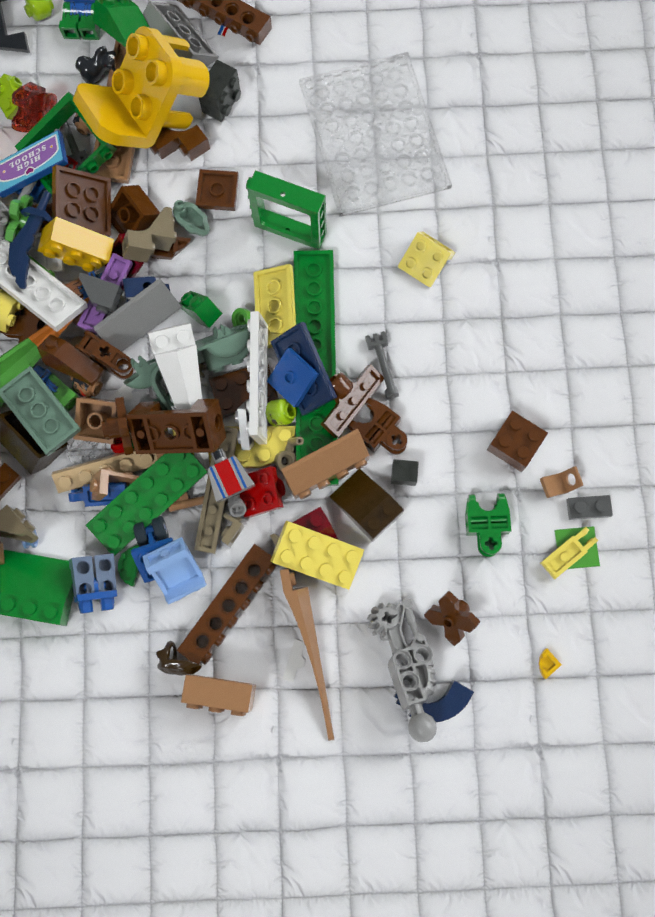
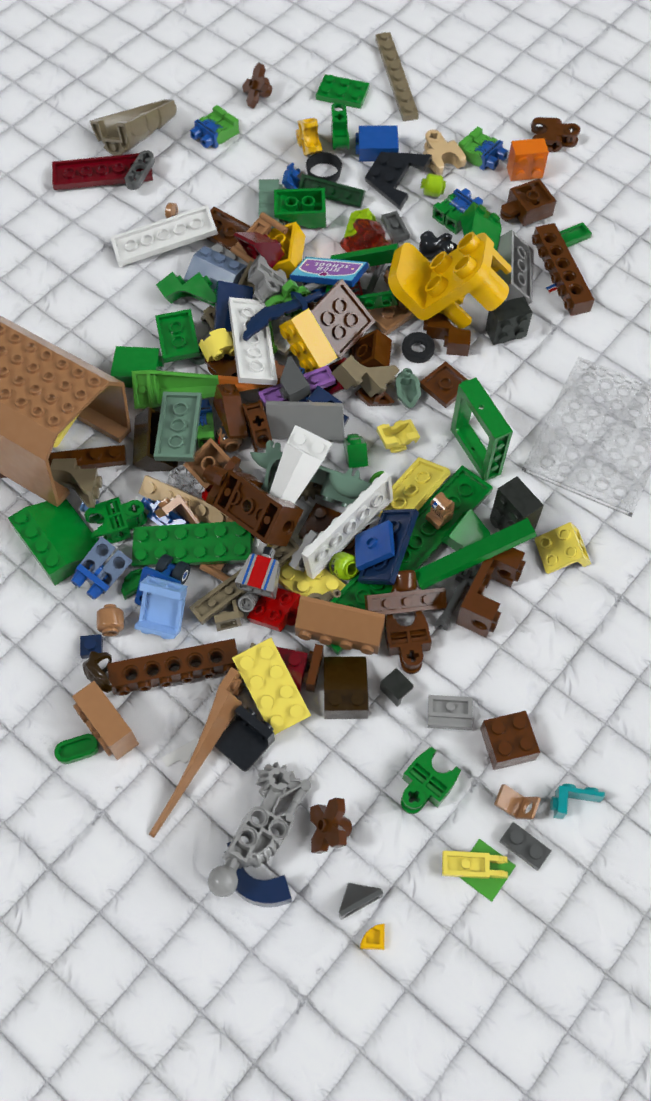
camera: 40 degrees right, 15 degrees down
(42, 73) = (395, 227): none -> dark grey plate
(67, 521) = (123, 512): none -> green piece
(142, 614) = (110, 620): none -> medium nougat head
(146, 646) = (90, 643): none -> dark blue plate
(164, 162) = (418, 357): none -> black tyre
(214, 731) = (76, 749): none -> green tile
(221, 266) = (398, 435): none -> light yellow cylinder
(315, 306) = (441, 511): none -> medium nougat leg
(327, 505) = (315, 659): none -> reddish brown plate
(333, 610) = (245, 738): none -> black bracket
(350, 307) = (465, 531): none -> green torso
(372, 258) = (513, 504): none -> pearl dark grey brick
(375, 319) = (475, 553): none -> green tile
(394, 311) = (479, 612): none -> reddish brown plate
(457, 457) = (450, 712): none -> light grey plate
(514, 648) = (357, 897): none -> dark grey slope
(586, 454) = (560, 801): none -> teal bracket

